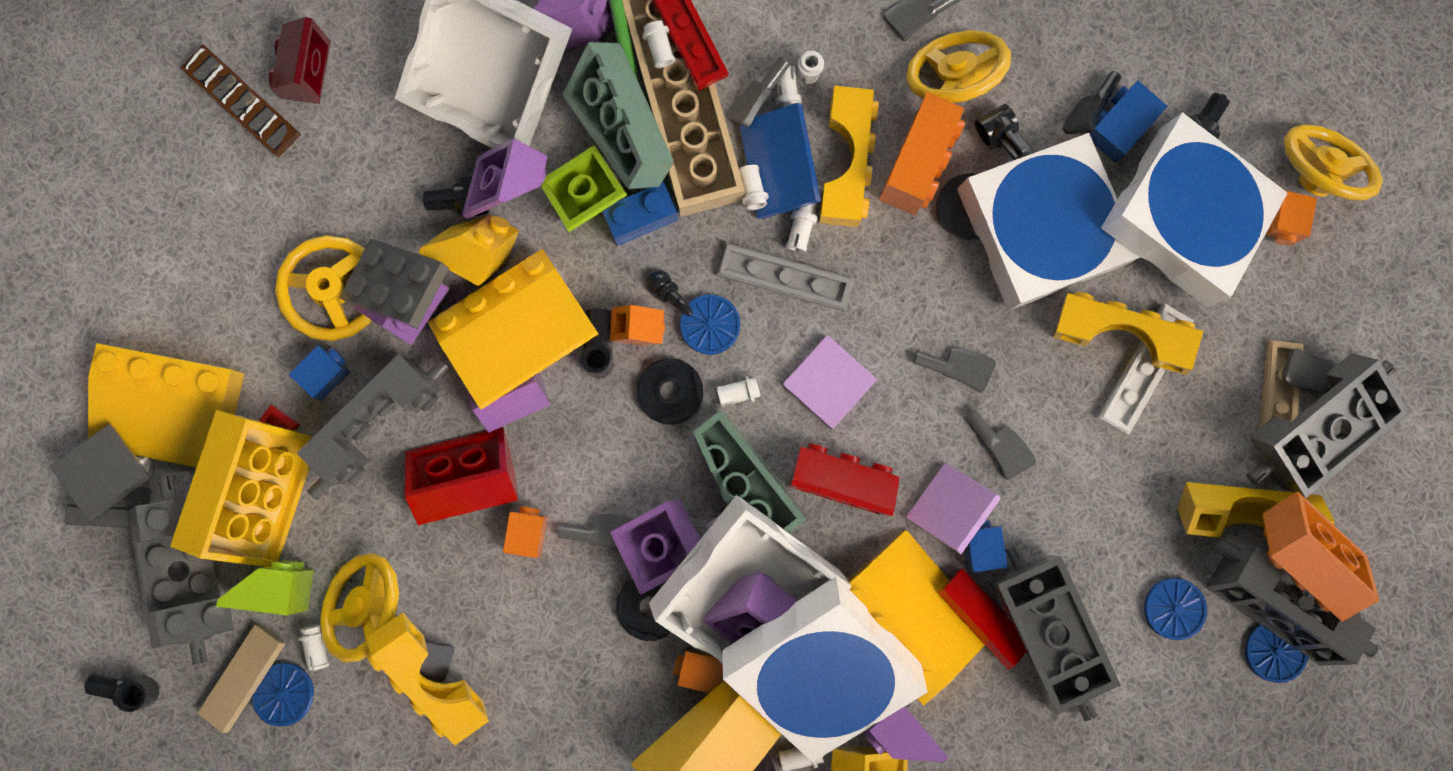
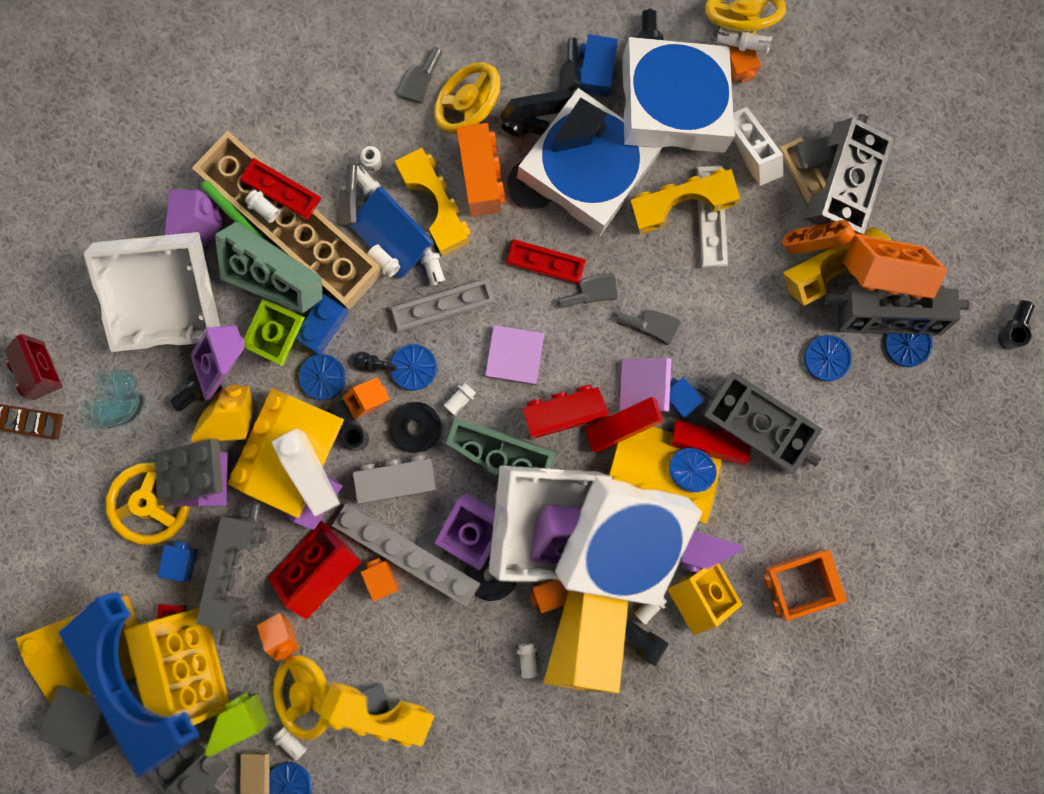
camera: 25 degrees left, 0 degrees up
(173, 403) = (93, 644): none -> blue arch
(373, 166) = (125, 406): none -> clear light blue brick
(375, 524) = (278, 637): none -> orange brick
(521, 364) = (306, 471): none -> white slope
(571, 525) = (406, 555): none -> light grey plate
(604, 271) = (322, 377): none -> blue wheel
(611, 434) = (395, 479): none -> light grey brick
(629, 726) = (527, 660): none -> white pin
(901, 537) = (624, 424): none -> red tile
(929, 301) = (545, 261): none -> red tile
(945, 636) = (692, 470): none -> blue wheel
(1029, 122) = (535, 105): none -> black tile
(1065, 178) = (580, 127): none -> black slope
(1245, 326) = (757, 148): none -> white slope
(1269, 476) = (818, 237): none -> orange beam
(1309, 196) = (744, 40): none -> white pin
(1415, 712) = (1019, 325): none -> black axle

